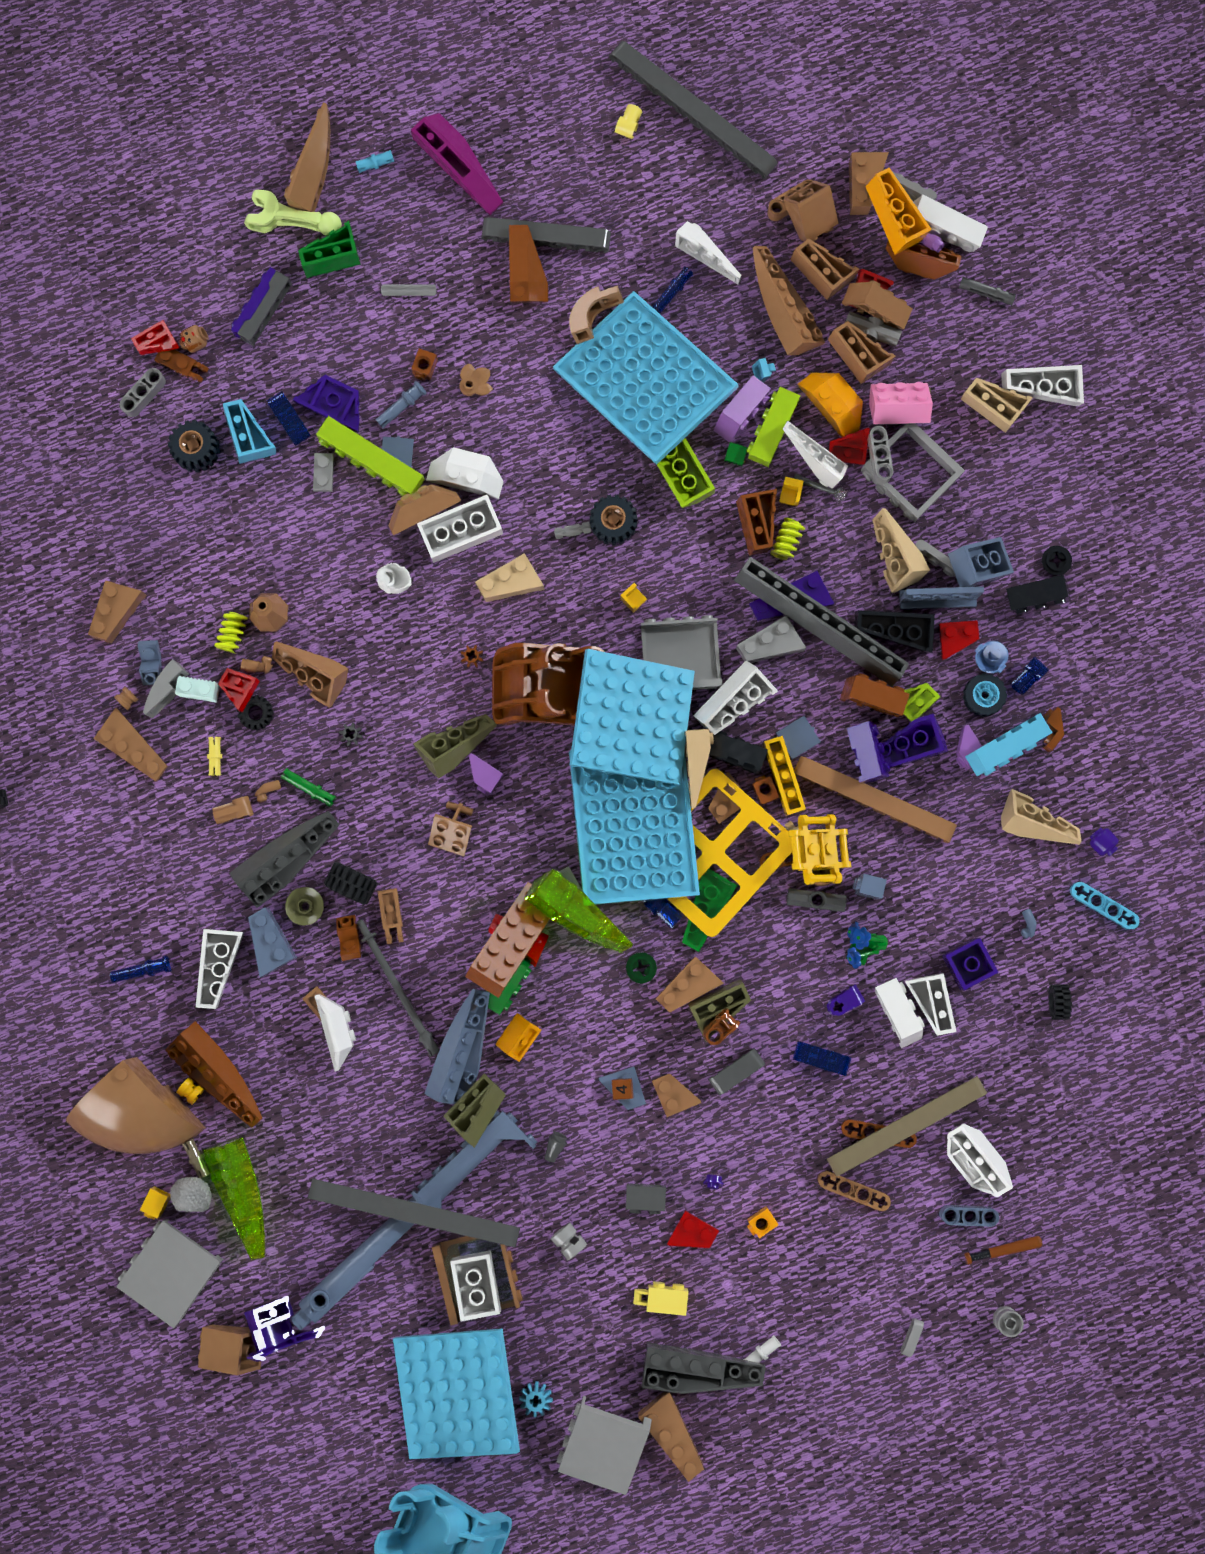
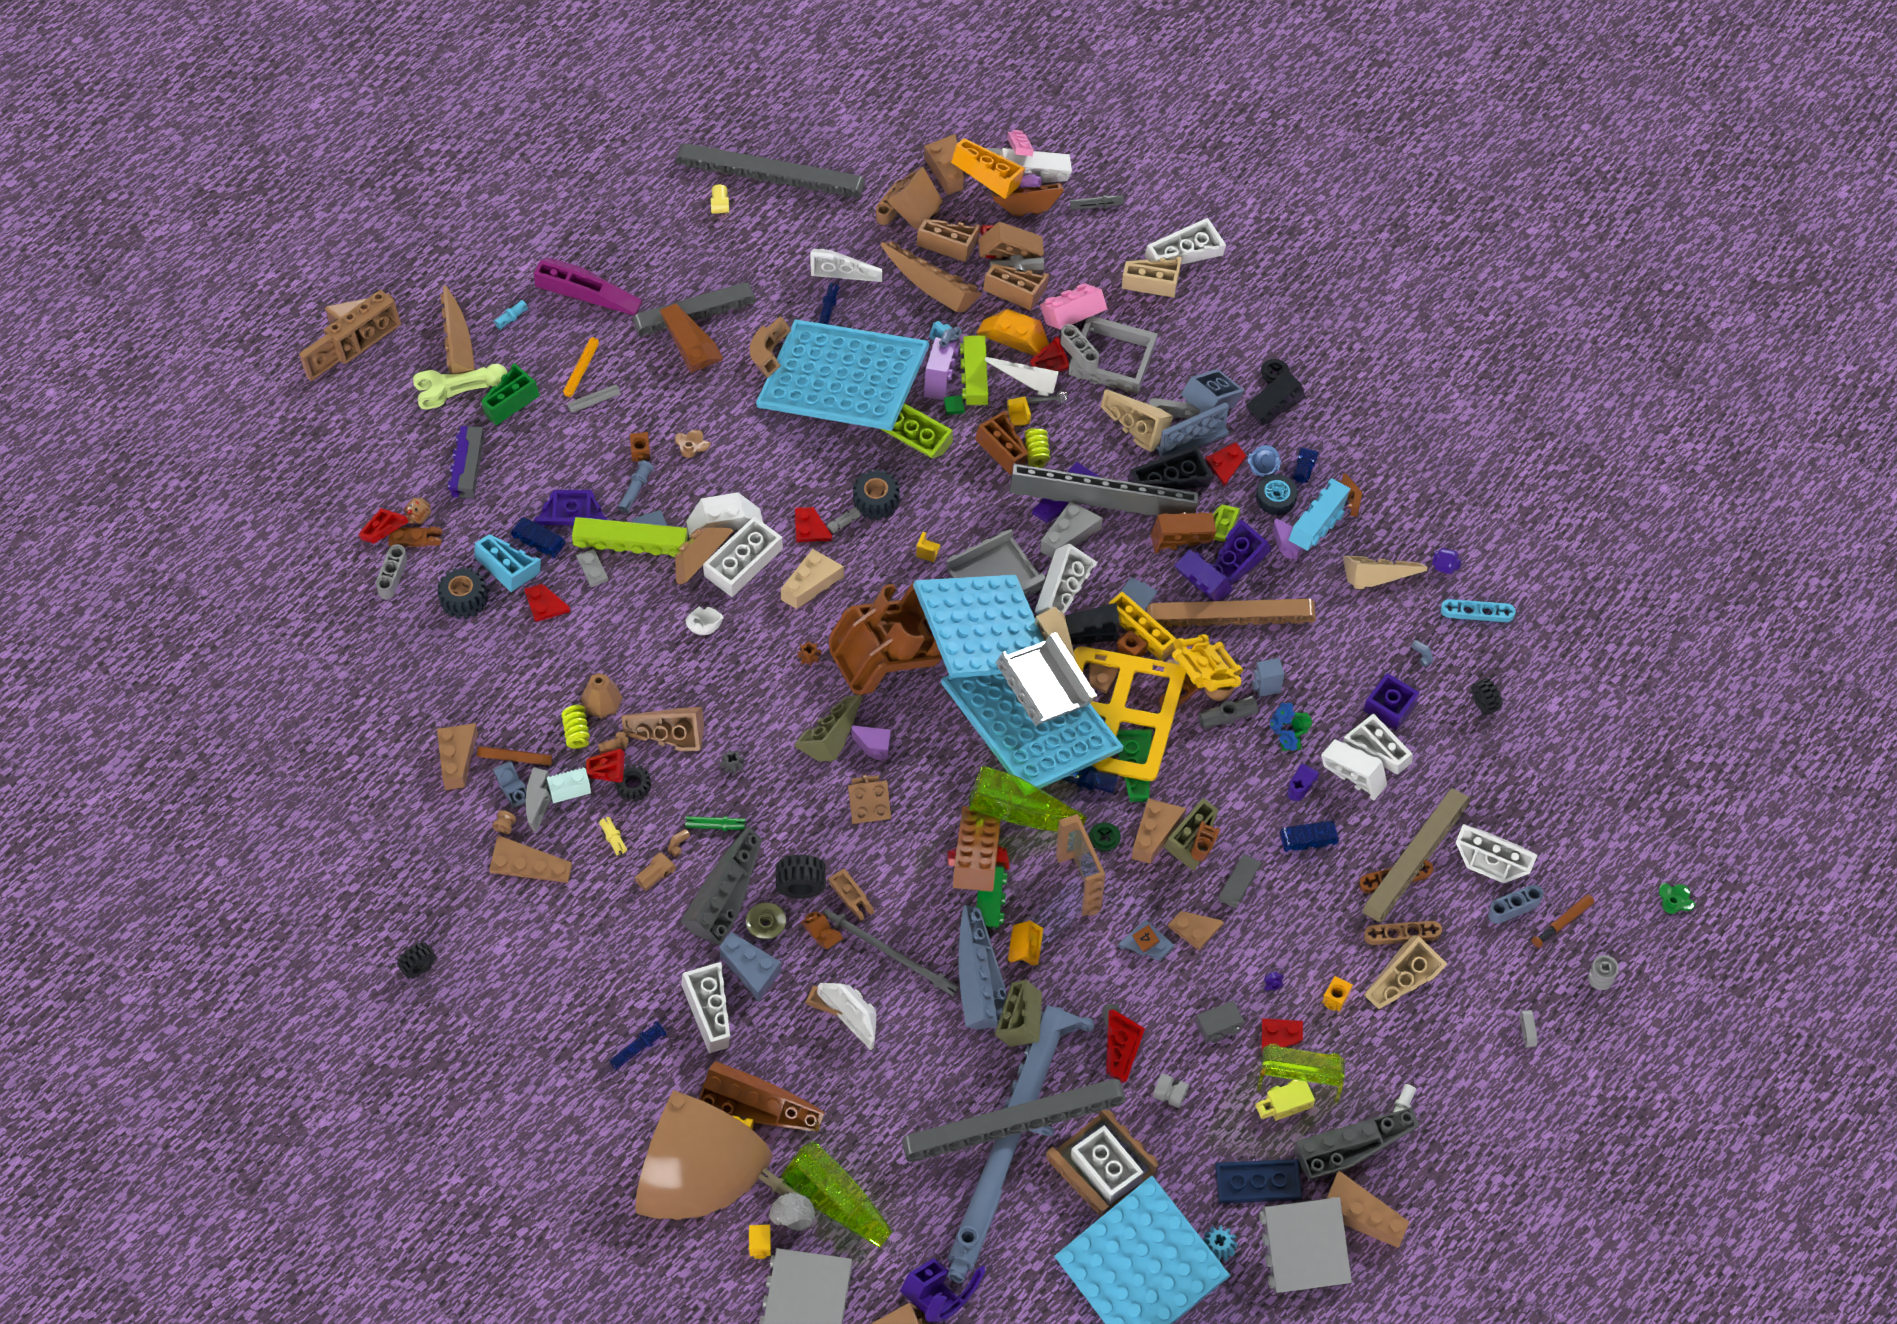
camera: 30 degrees left, 25 degrees down
(165, 635) = (514, 755): none -> dark orange beam
(219, 107) = (350, 323): none -> medium nougat wedge
(263, 488) = (544, 603): none -> red wing
(413, 249) = (581, 367): none -> light orange axle
(539, 521) = (810, 526): none -> red wing
(549, 1178) = (1122, 1045): none -> red wing
(590, 1034) = (1075, 843): none -> medium nougat panel
(601, 1357) = (1258, 1181): none -> dark blue tile
(658, 801) = (1046, 680): none -> panel
(686, 1288) = (1302, 1066): none -> clear neon green windscreen
(765, 381) = (950, 335): none -> sand blue arm
(838, 1229) = (1407, 970): none -> tan wedge
(944, 194) = (1020, 143): none -> bright pink plate
(1120, 1277) = (1675, 898): none -> green plate

